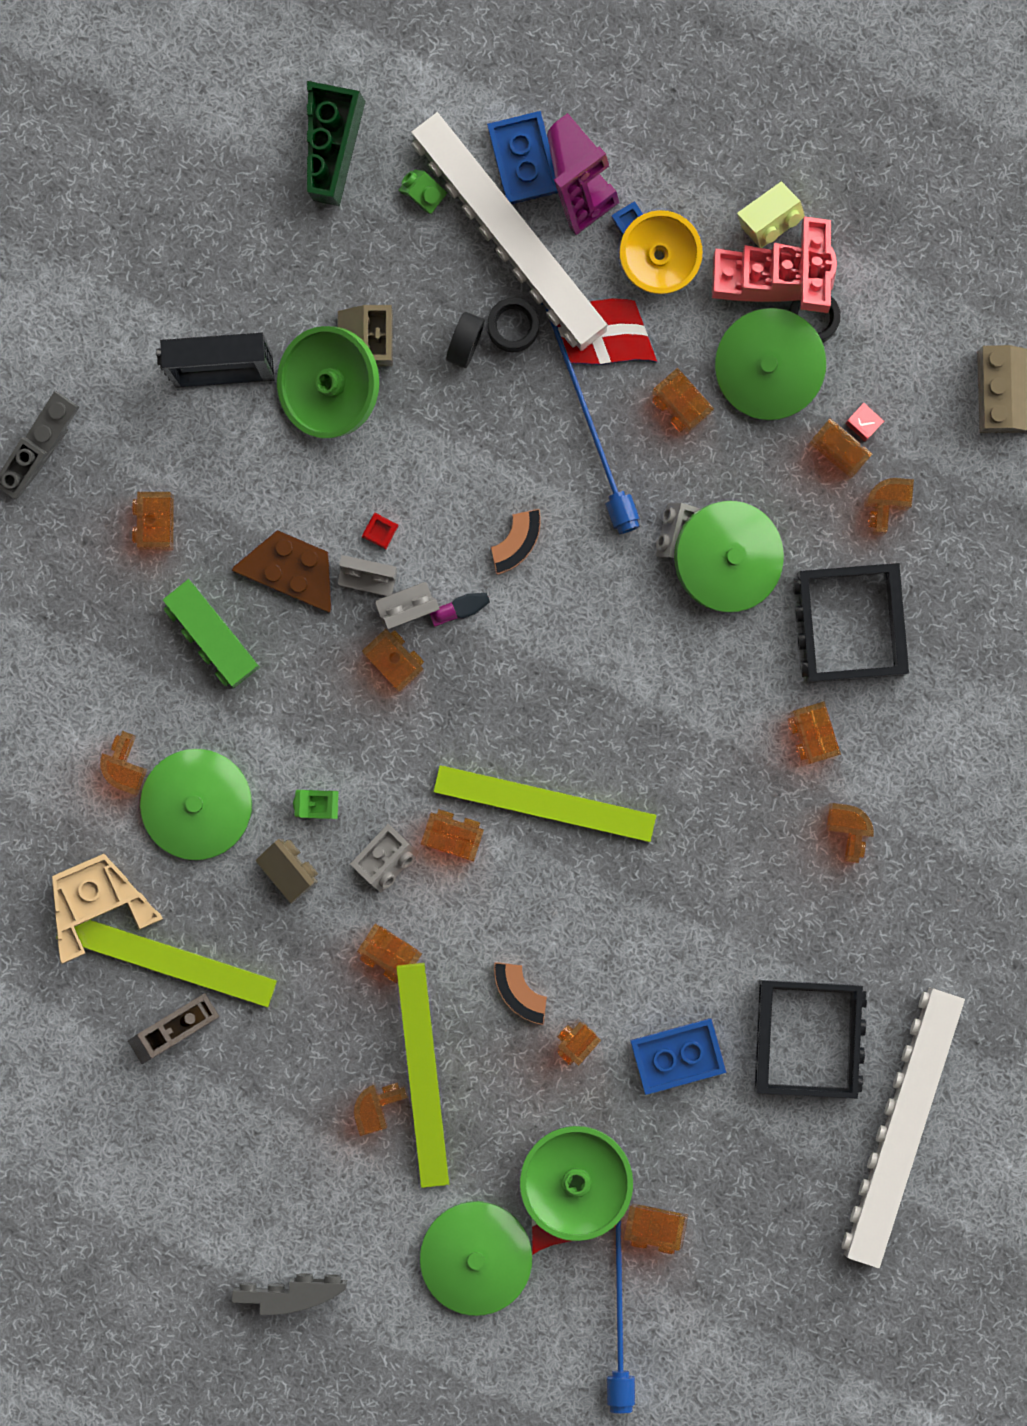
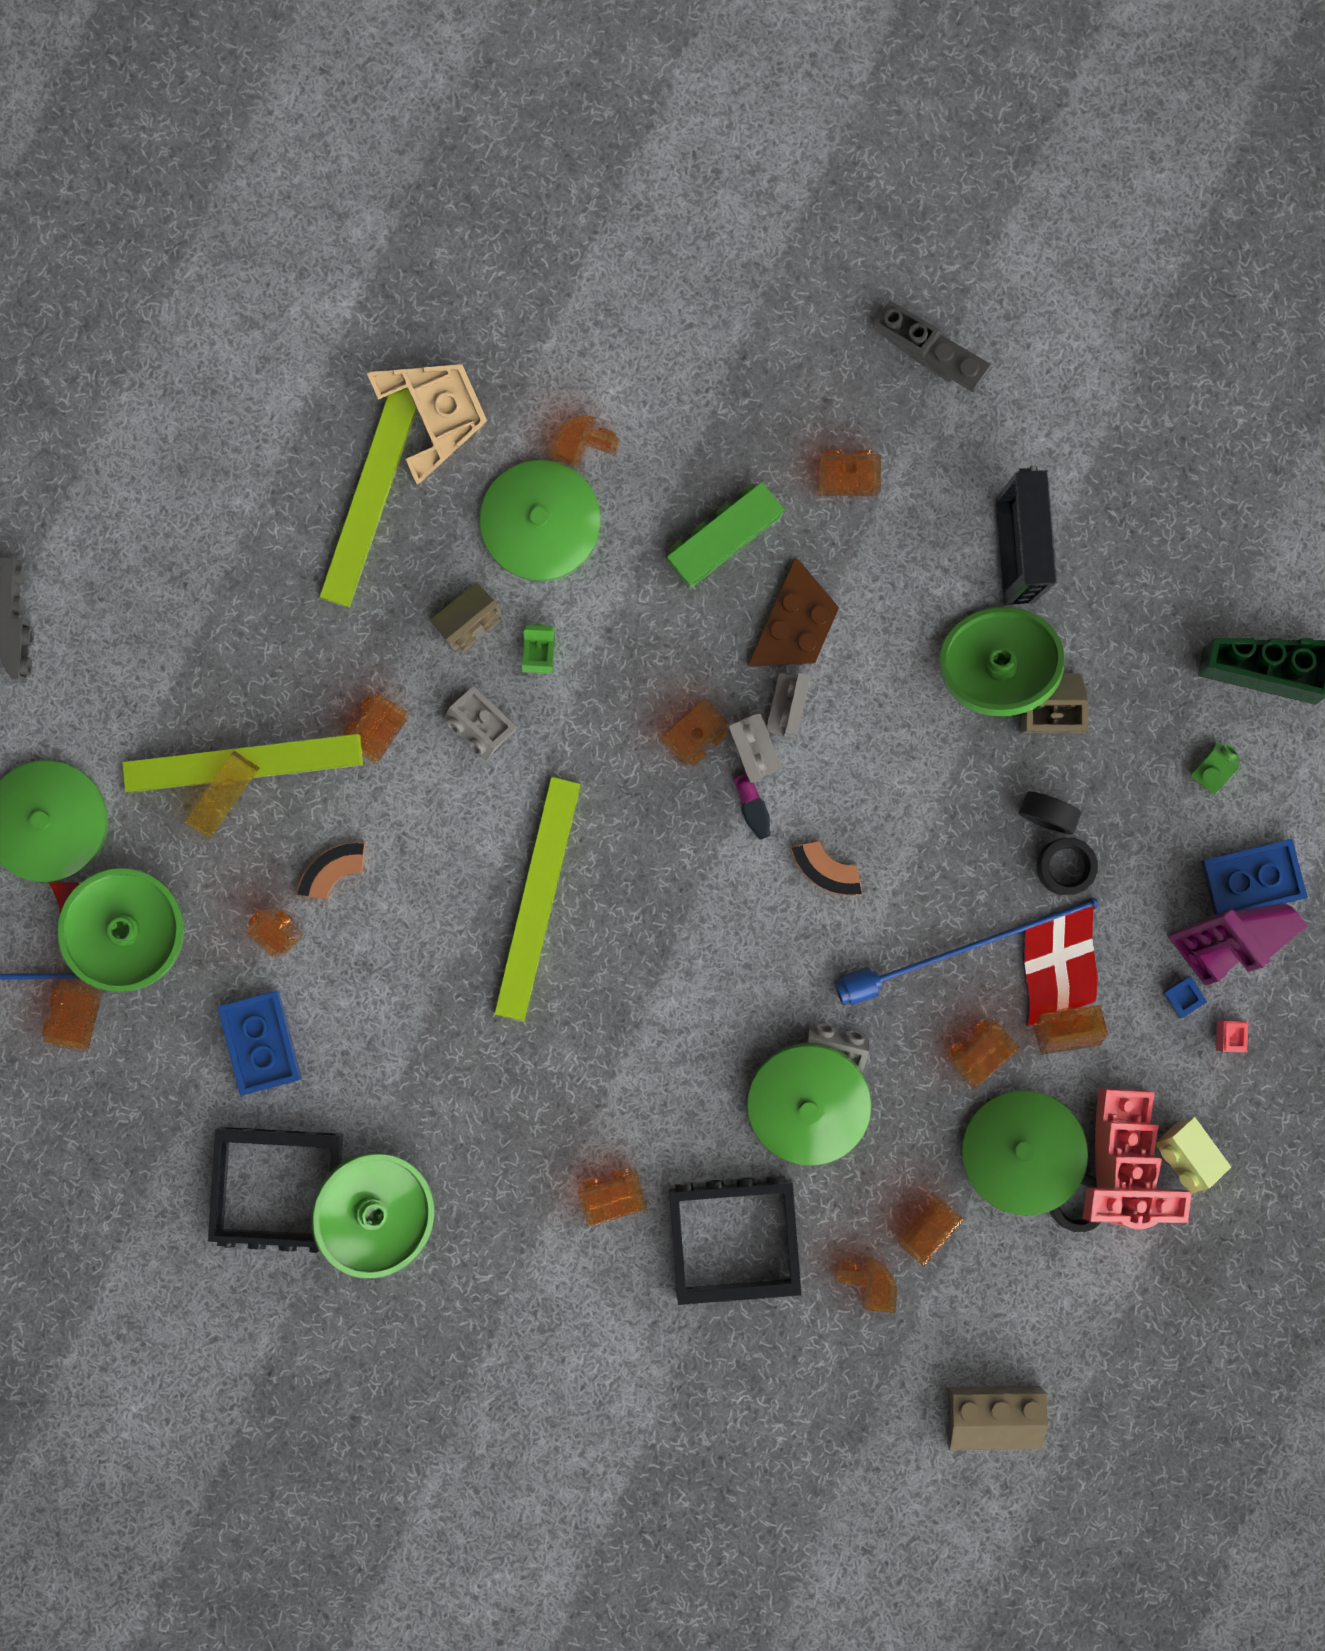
camera: 90 degrees right, 0 degrees up
(173, 1028) = (297, 495): dark brown slope -> none
(369, 1110) = (209, 706): clear orange brick -> none
(380, 531) = (838, 719): red tile -> none
(451, 1093) = (222, 794): none -> clear yellow tile
(453, 836) = (502, 797): clear orange brick -> none
(508, 231) = (1171, 862): white brick -> none
(660, 322) = (1070, 1029): none -> clear orange brick
(664, 179) = (1232, 1036): none -> coral tile
(665, 233) = (1171, 1035): yellow dish -> none
(832, 949) = (372, 1215): none -> bright green dish
(853, 822) = (513, 1239): clear orange brick -> none
(864, 422) = (960, 1257): slope -> none
(903, 1127) = (177, 1291): white brick -> none

